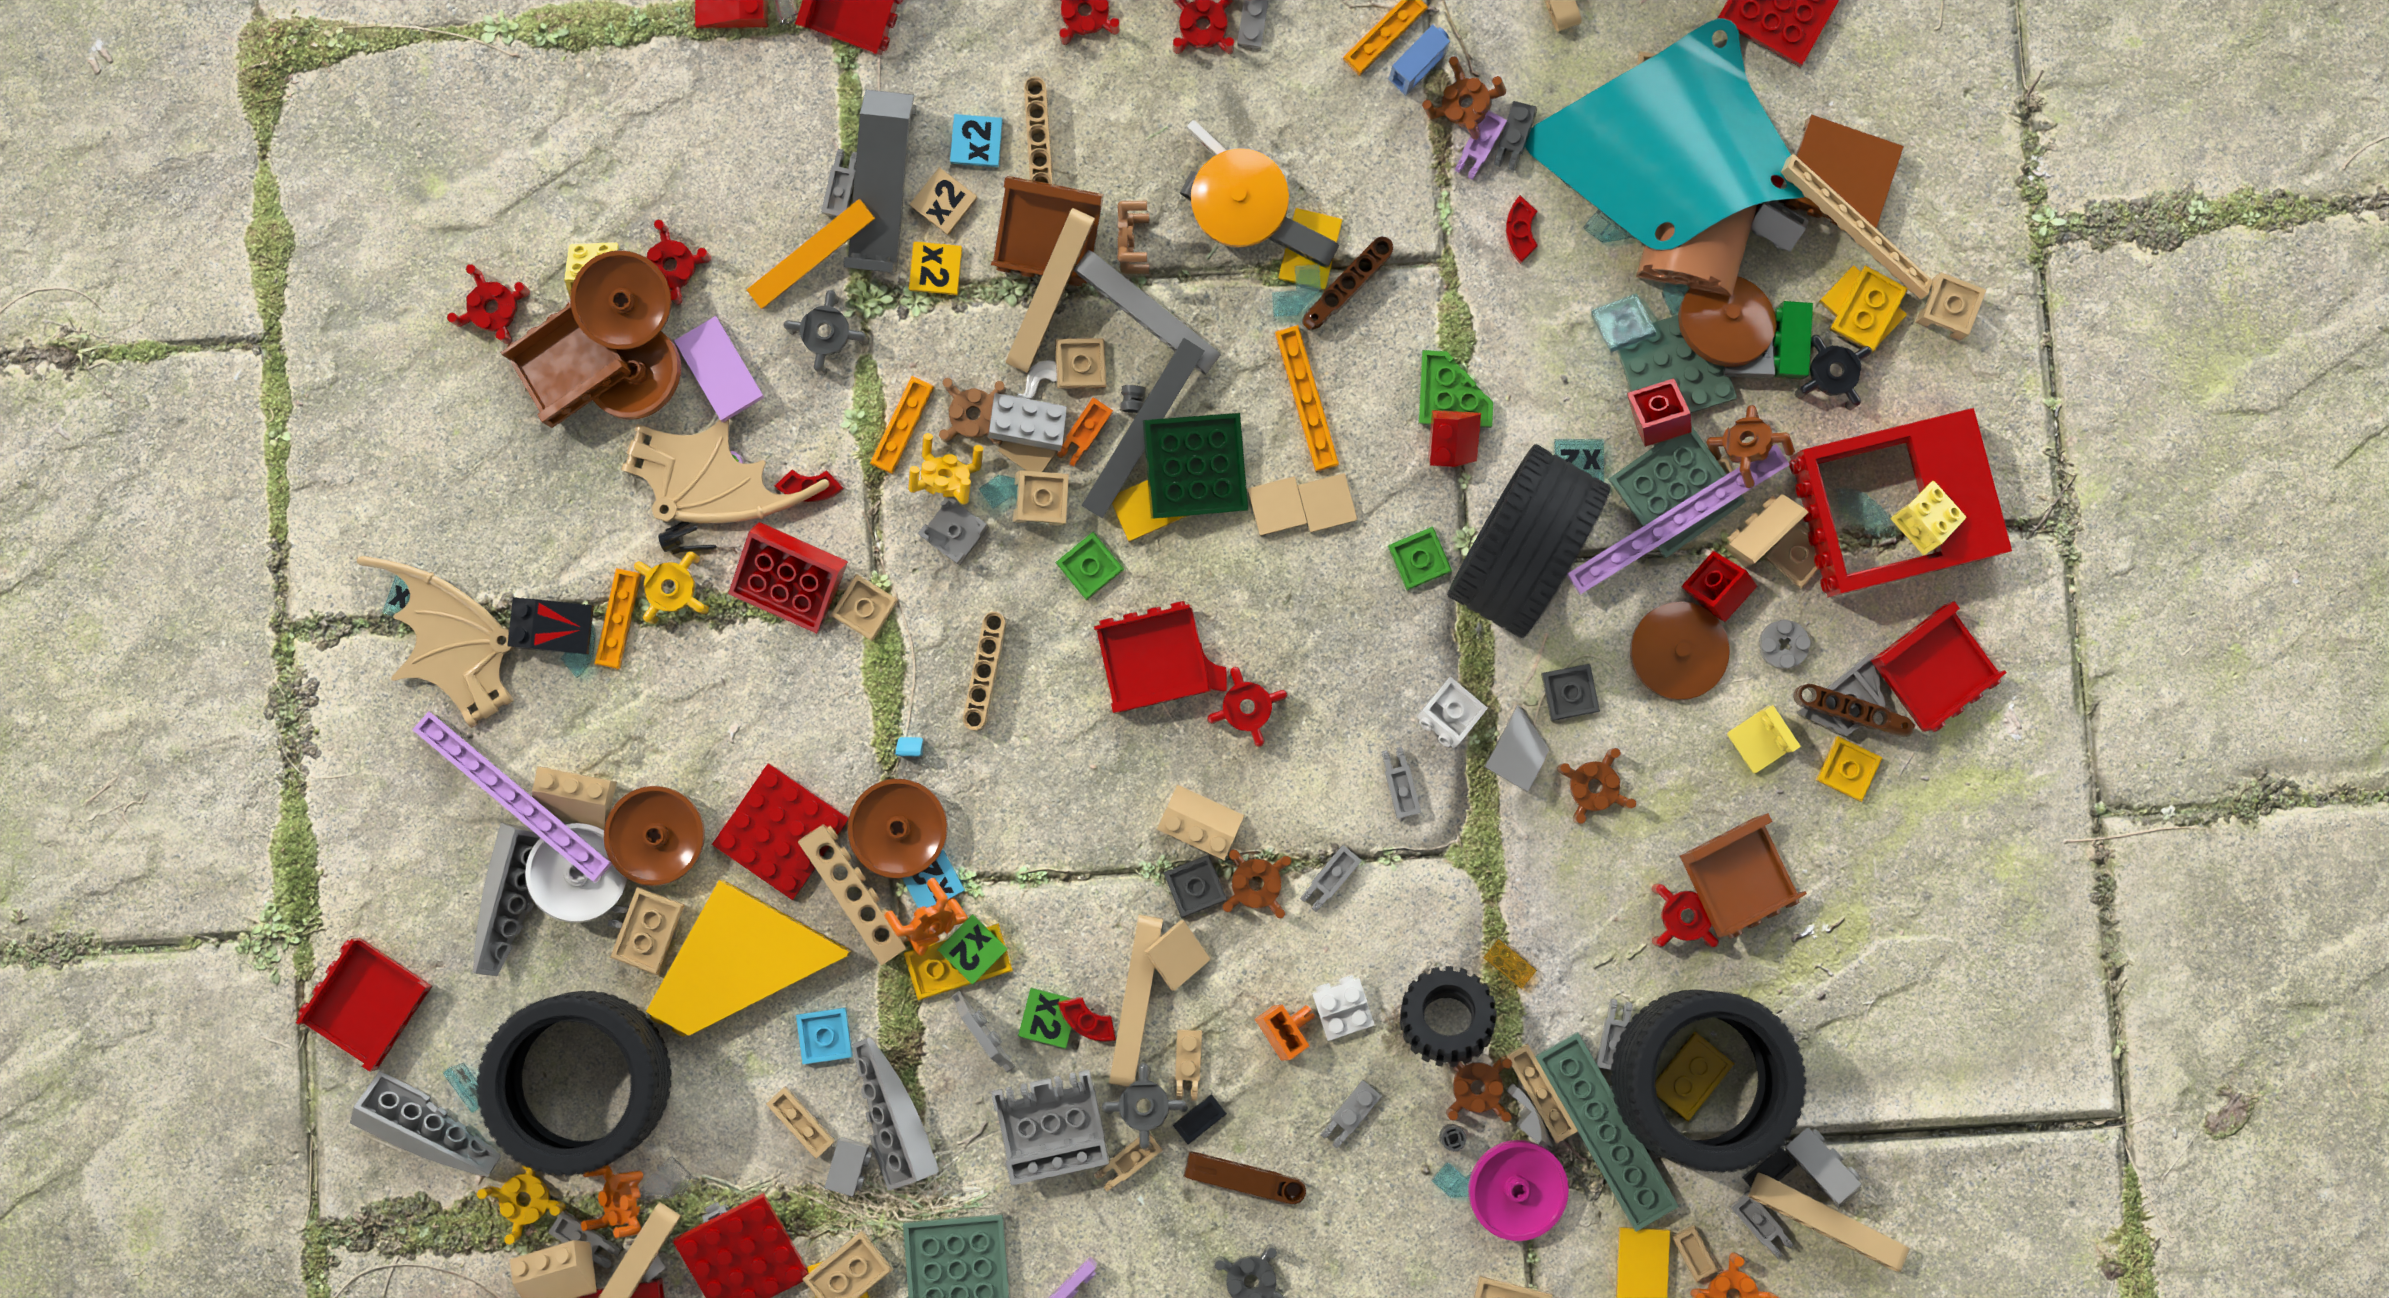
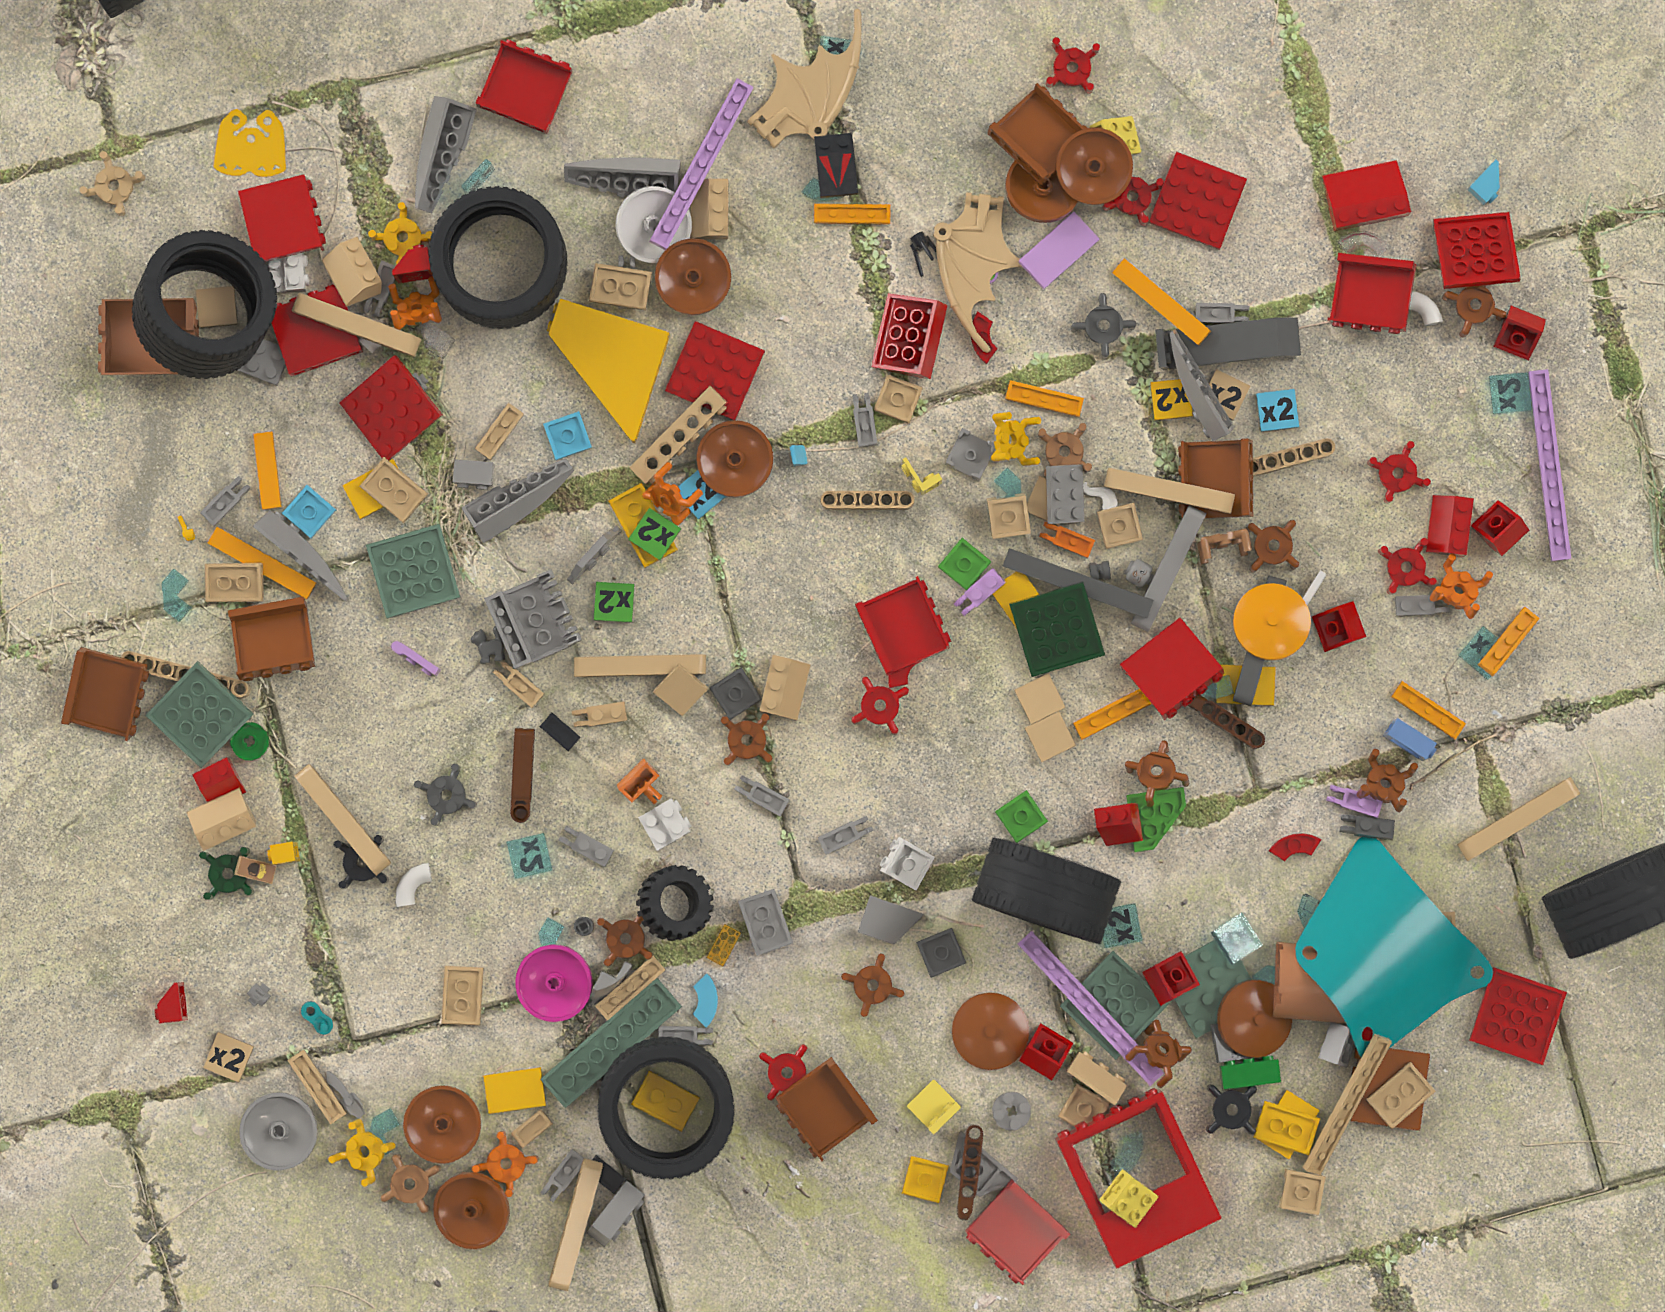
camera: 85 degrees right, 0 degrees up
(562, 1196) = (413, 265): none -> red slope
(682, 594) = (883, 260): yellow plate -> none
(693, 185) = (1197, 200): none -> red plate
(885, 655) = (864, 422): none -> light grey hinge
(936, 229) = (1200, 395): none -> light grey wedge
(978, 588) = (929, 482): none -> light yellow bracket
(1074, 1190) = (490, 647): none -> dark grey animal
(1086, 1022) = (616, 631): red tile -> none
(1127, 551) = (981, 590): none -> lavender hinge
(1145, 351) = (1139, 573): none -> light grey head
(1147, 191) = (1264, 553): none -> dark orange plate
(1155, 1116) = (558, 697): dark grey plate -> none
(1261, 119) = (1339, 626): none -> red slope
(1274, 331) = (1173, 669): none -> red panel
(1349, 1189) = (529, 856): none -> clear light blue tile
(1412, 383) = (1161, 781): none -> dark orange plate
(1491, 905) = (765, 922): none -> light grey plate
(1574, 998) = (707, 1001): none -> medium azure tile
(1857, 160) = (1400, 1095): none -> tan tile

